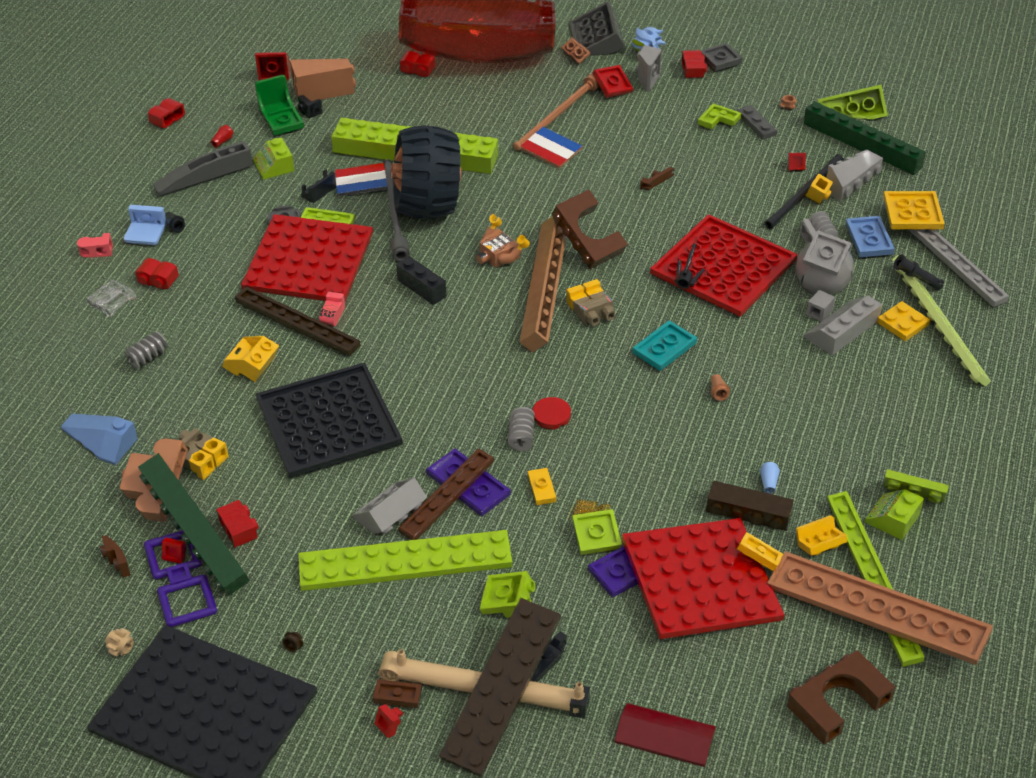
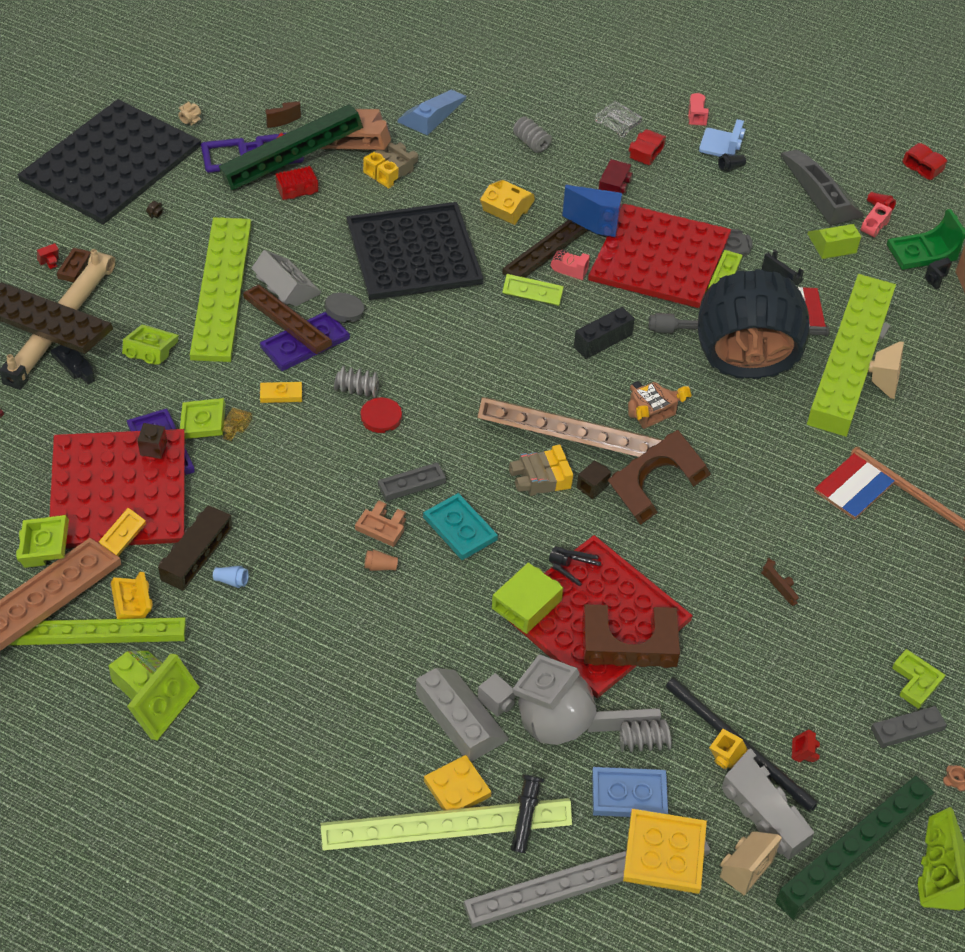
camera: 95 degrees right, 5 degrees up
(208, 291) = (616, 177): none -> dark red brick
(251, 137) = (875, 221): none -> coral leg
(276, 283) = (593, 209): none -> blue slope
(372, 330) = (533, 290): none -> lime plate
(421, 455) = (344, 307): none -> dark grey tile
(434, 117) = (887, 368): none -> tan slope
(590, 271) = (593, 479): none -> dark brown brick
(626, 380) = (411, 481): none -> dark grey plate
(657, 541) = (152, 440): none -> dark brown brick
(683, 392) = (379, 527): none -> nougat plate
(732, 290) = (527, 597): none -> lime brick
(749, 220) = (603, 648): none -> reddish brown arch
(789, 611) = (42, 540): none -> lime plate
(899, 173) = (750, 860): none -> tan slope

